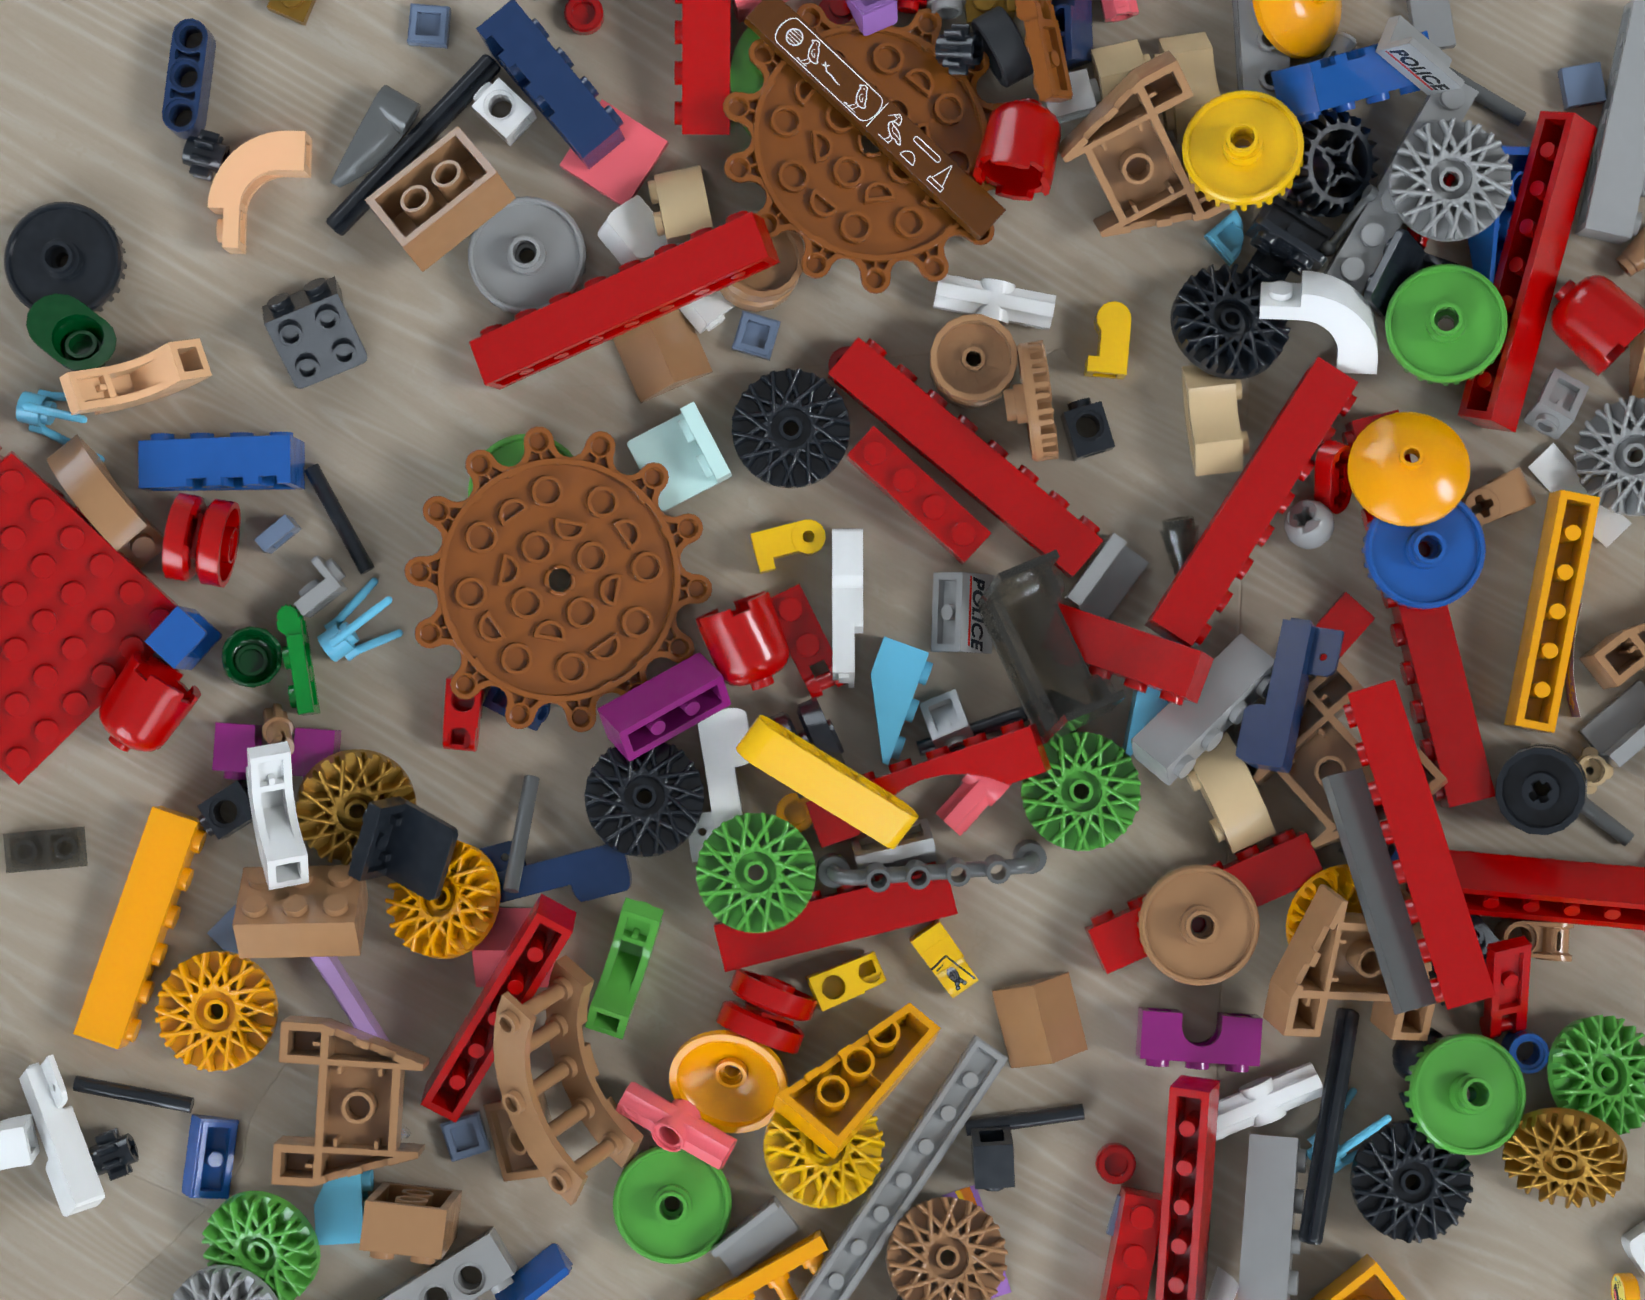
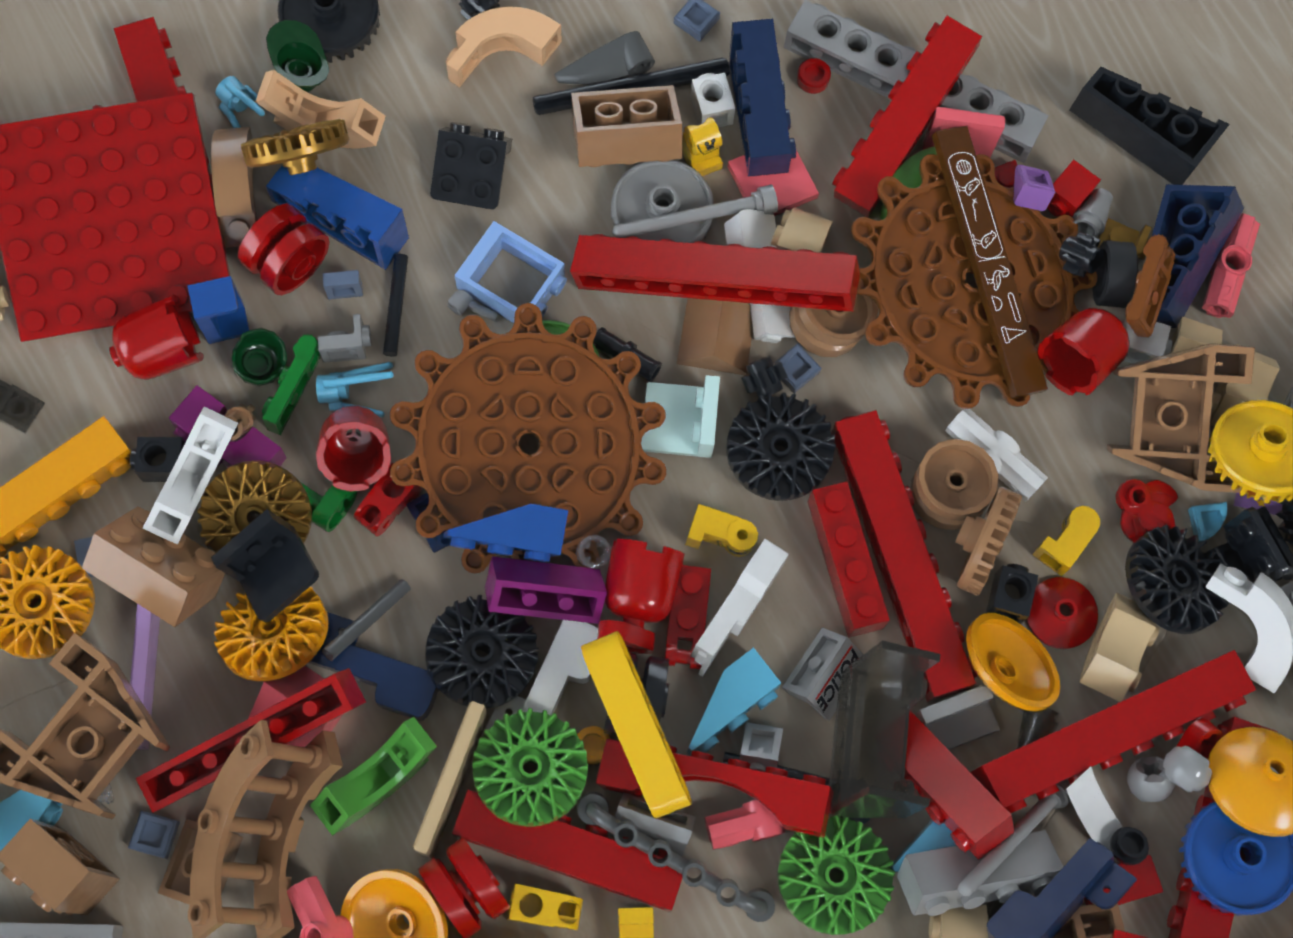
camera: 25 degrees right, 15 degrees down
(145, 436) = (297, 147): none -> pearl gold wheel
(390, 420) = (486, 251): none -> light blue window
(399, 475) = (462, 300): none -> light grey hand
(402, 689) = (353, 458): none -> red cylinder
(417, 753) = (330, 508): none -> green piece
(527, 171) = (702, 147): none -> yellow leg
(583, 426) = (613, 345): none -> black pin
(604, 671) = (528, 528): none -> blue slope
(618, 191) = (761, 200): none -> light grey piece
(694, 928) = (451, 780): none -> tan tile
(695, 640) = (585, 543): none -> clear bush
(733, 368) = (764, 377): none -> black gear
(764, 700) = (635, 638): none -> red beam
(1125, 498) = (1012, 662): none -> light orange dish
(1138, 435) = (1054, 628): none -> red dish
(1170, 263) = (1149, 511): none -> red plate
(1219, 652) = (1021, 831): none -> light grey piece
(1278, 588) = (1093, 808): none -> white sticker
(1323, 596) = (1129, 846): none -> black plate
(1334, 502) = (1187, 769): none -> light grey piece

